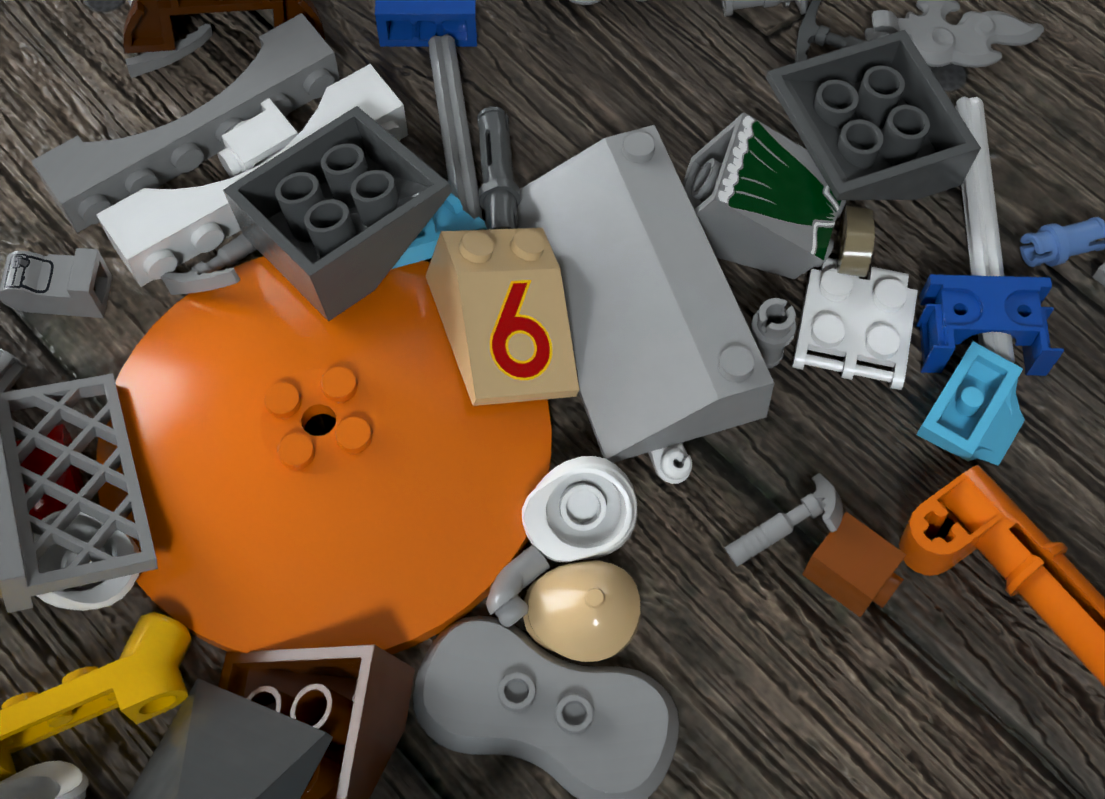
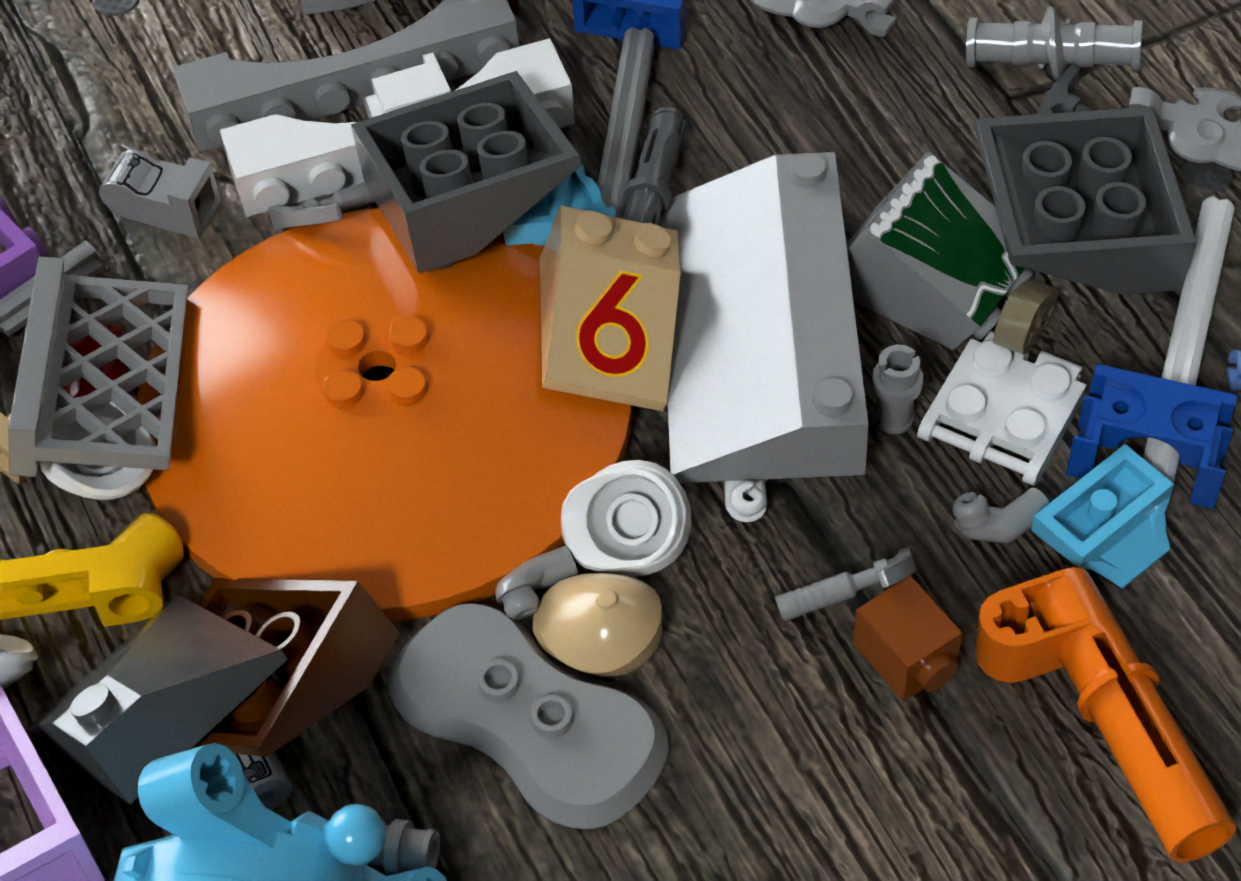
camera: 20 degrees right, 10 degrees down
(887, 433) = (995, 524): none -> light grey arm

